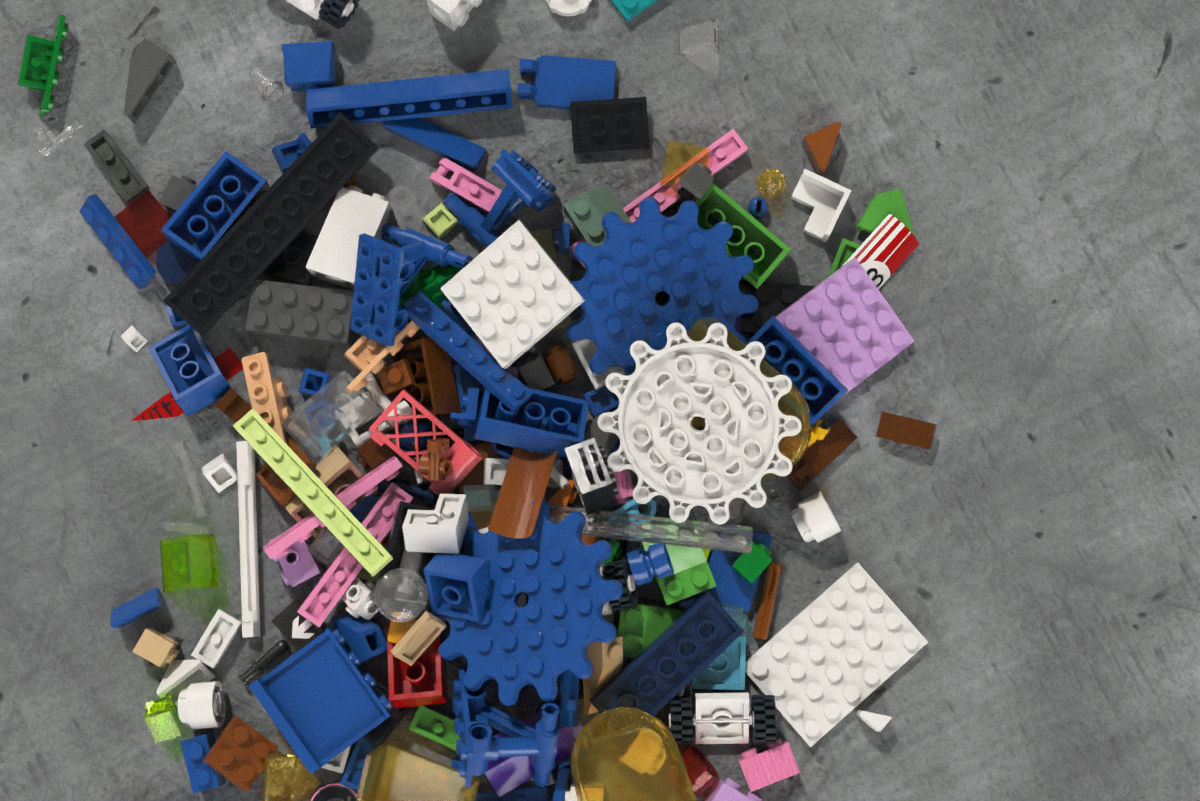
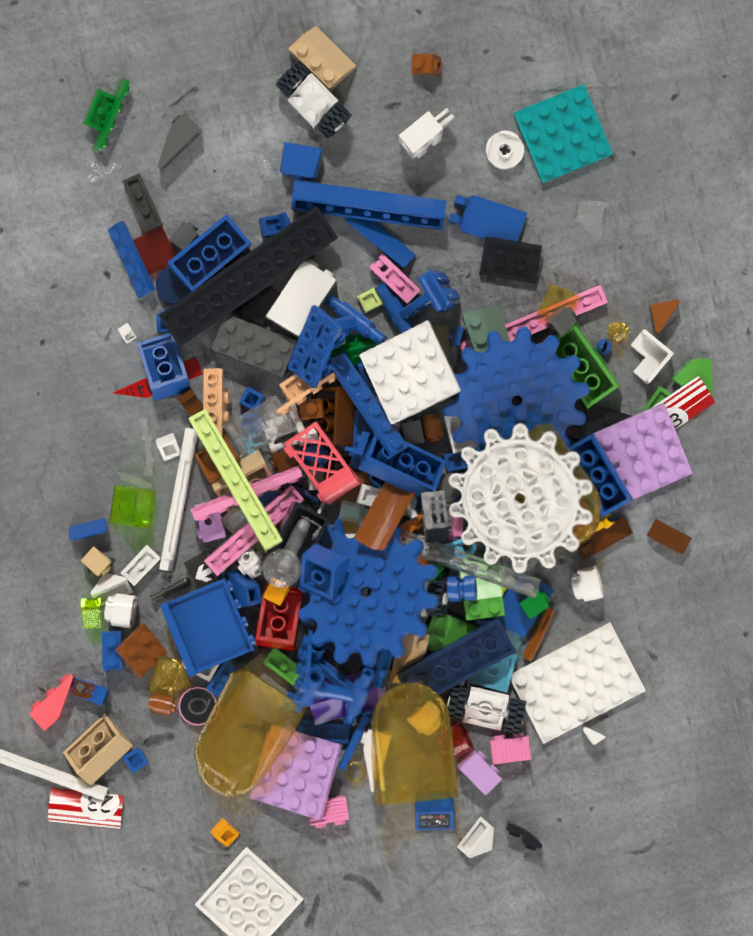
camera: 15 degrees right, 5 degrees up
(418, 638) = (286, 601): tan tile -> none
(435, 463) = (326, 479): dark orange plate -> none
(437, 529) = (318, 528): white panel -> none

